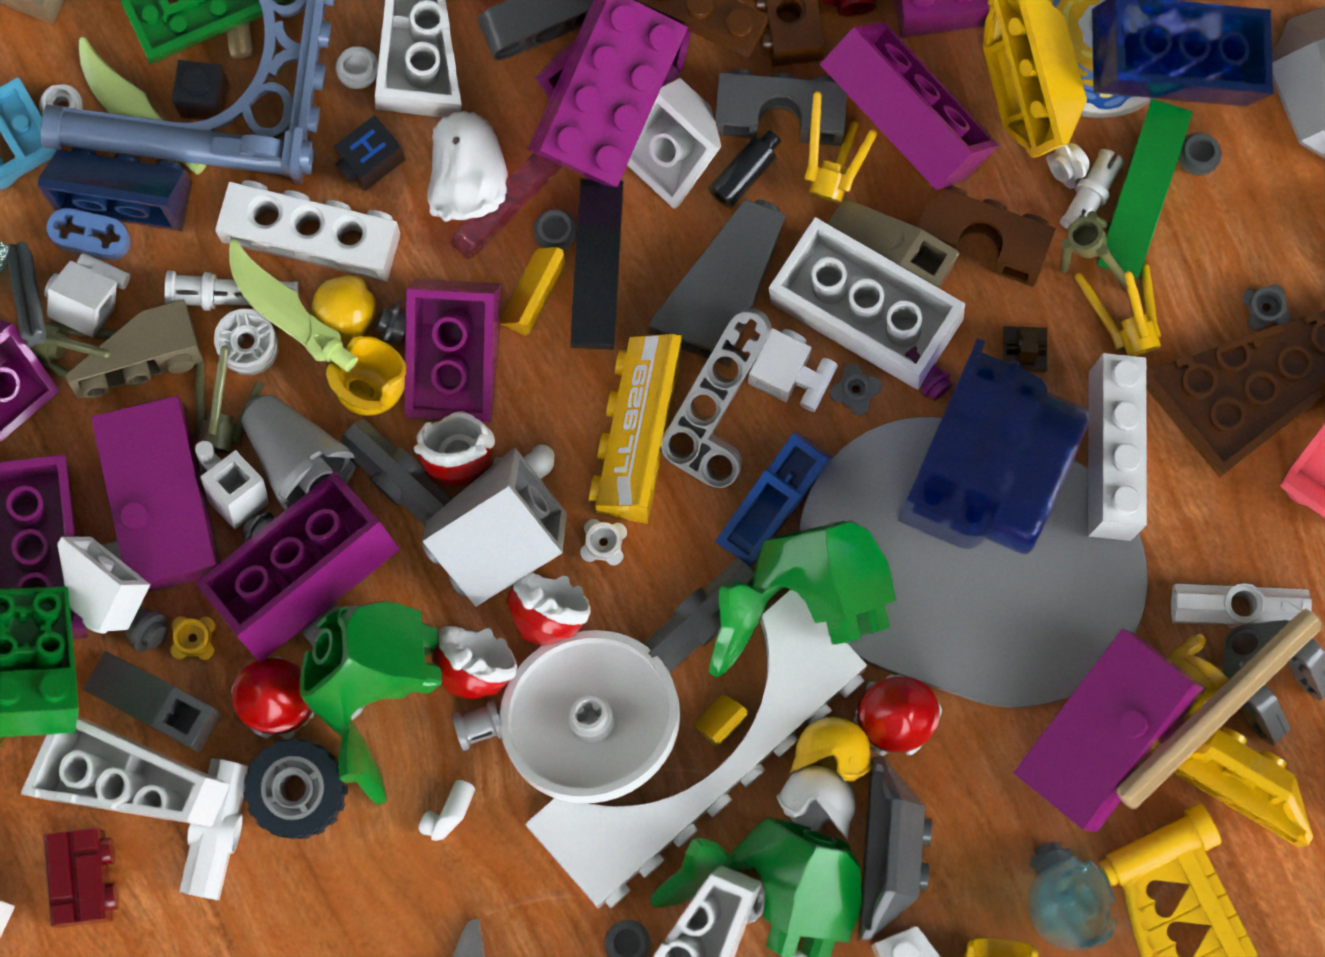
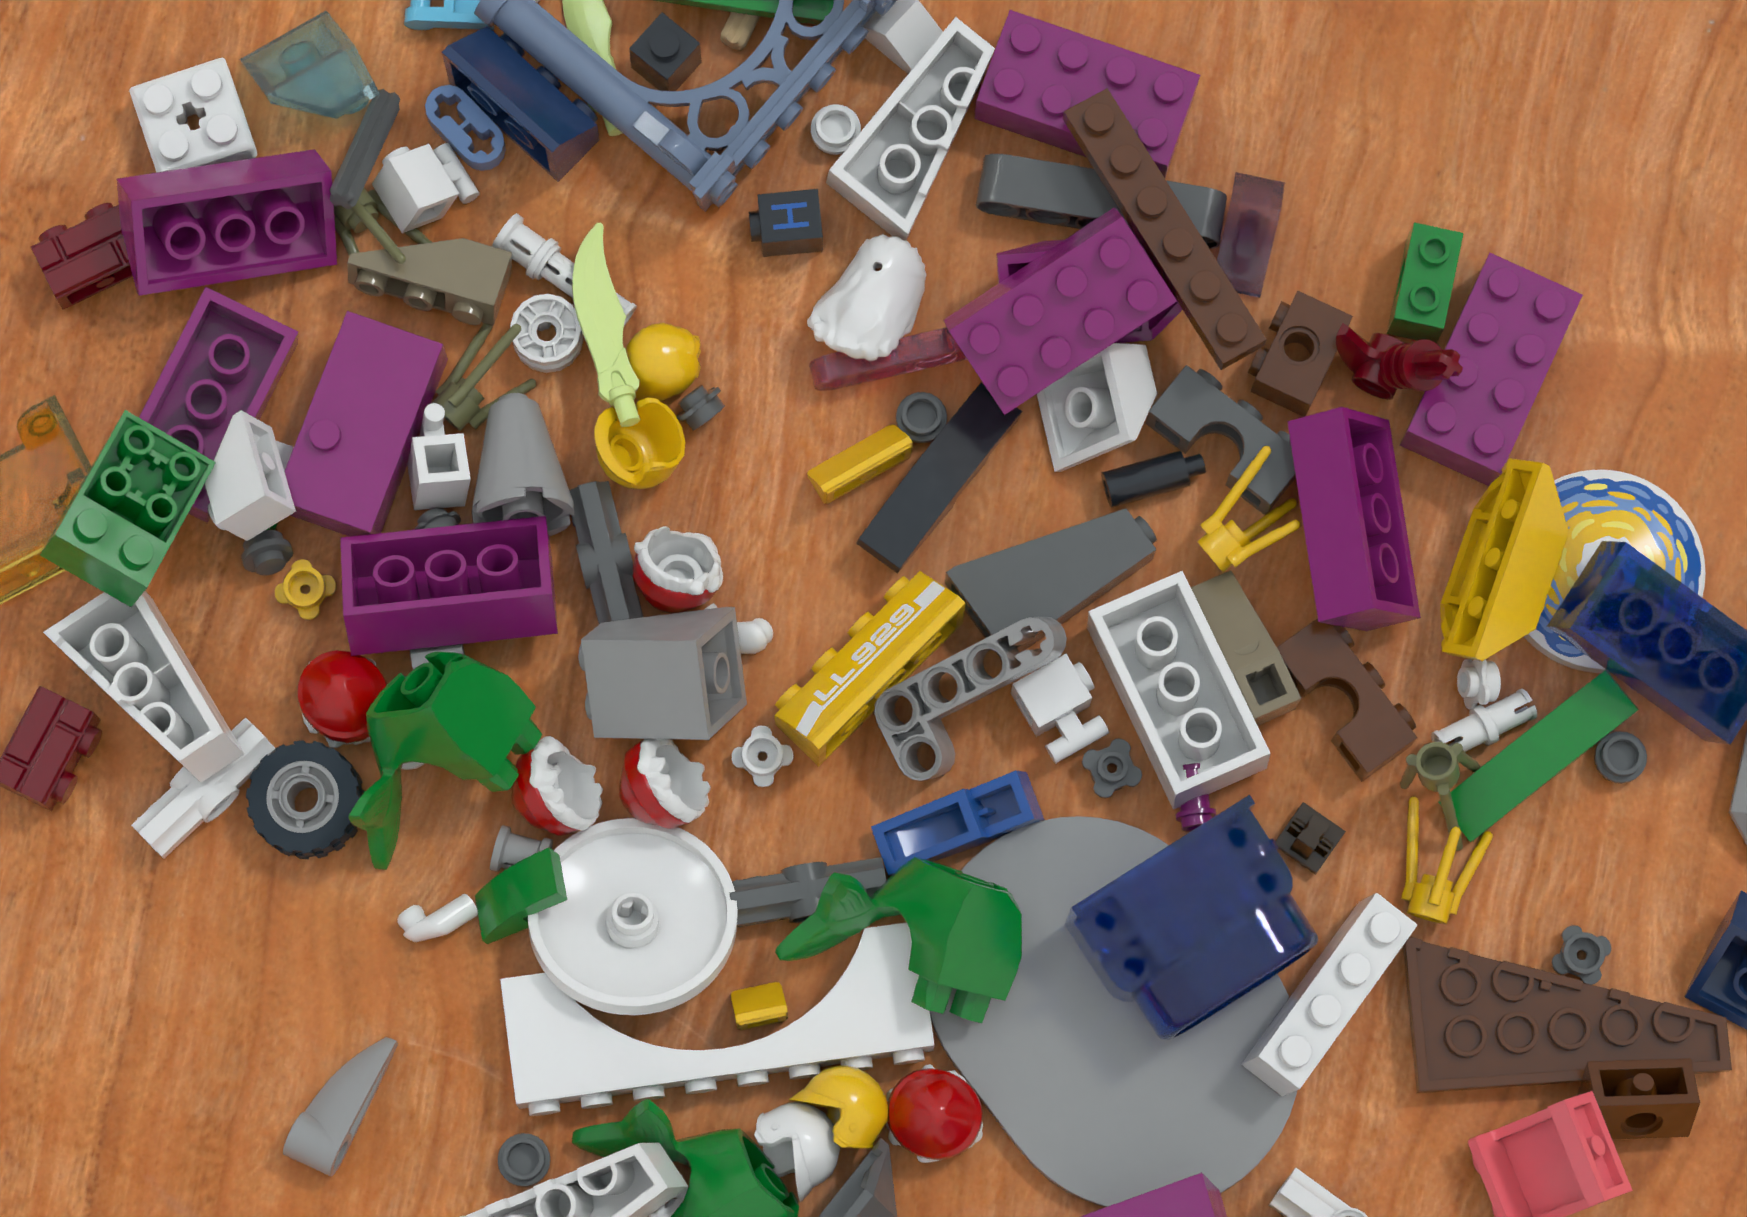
camera: 30 degrees right, 0 degrees up
(152, 701) = (225, 626): dark grey slope -> none
(368, 258) = (720, 326): white brick -> none
(451, 348) = (741, 468): magenta slope -> none
(496, 752) = (520, 892): none -> green slope

